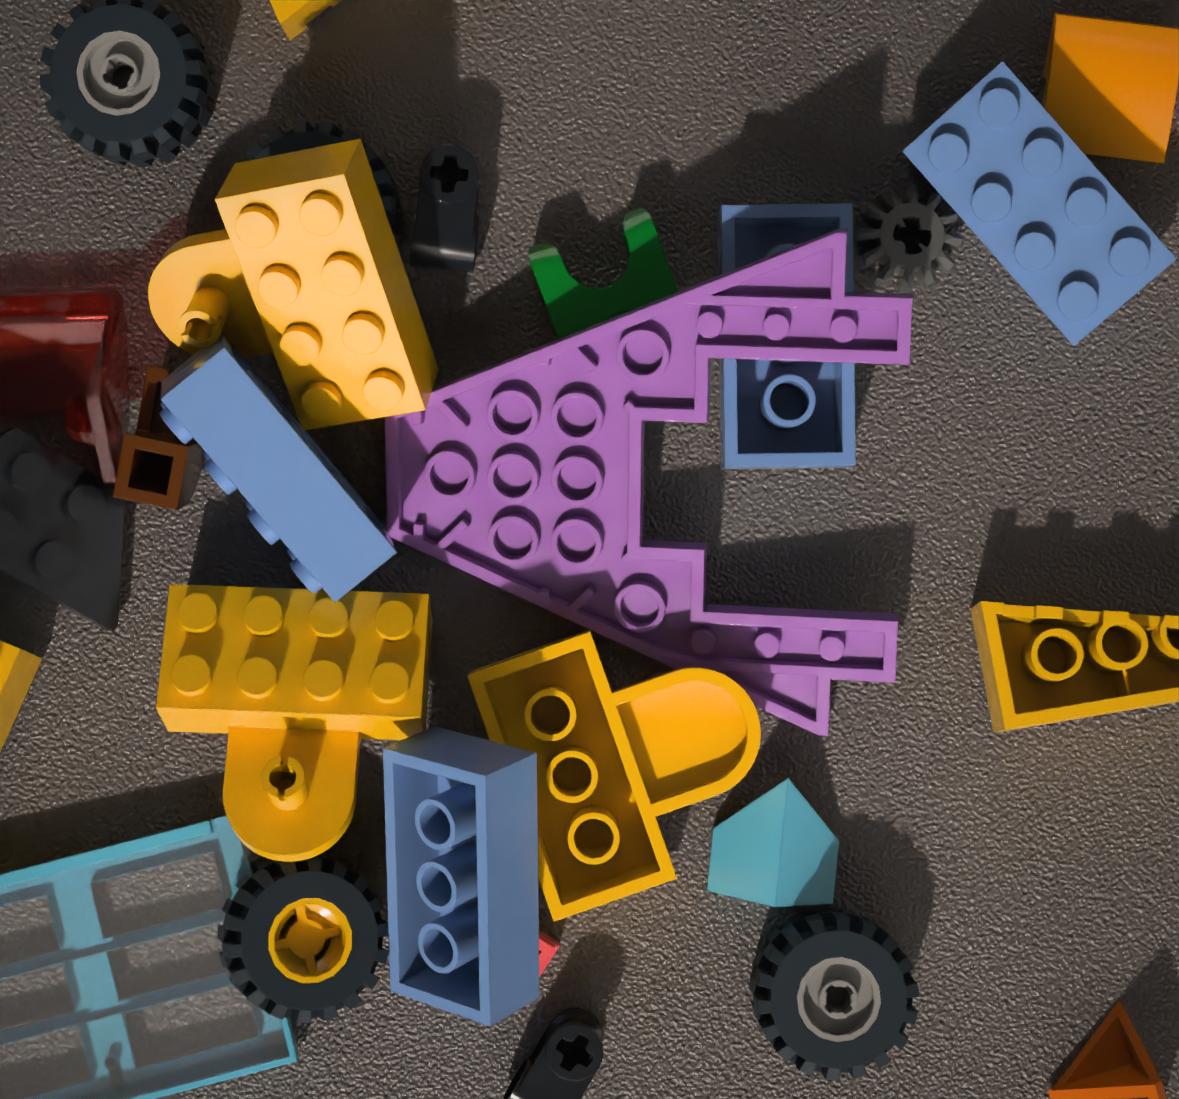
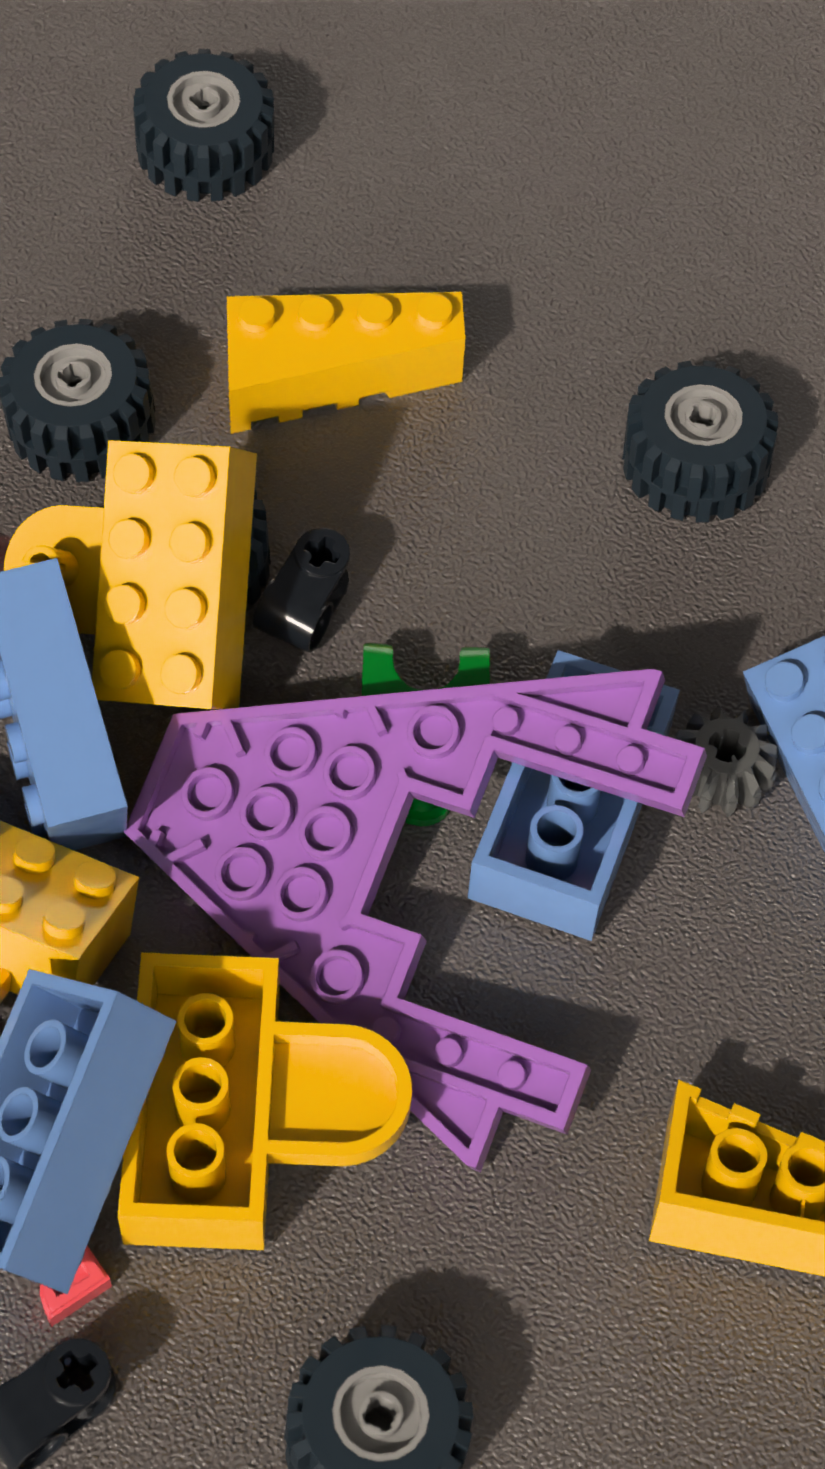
camera: 20 degrees right, 30 degrees down
(774, 852) = (377, 1264): medium azure slope -> none

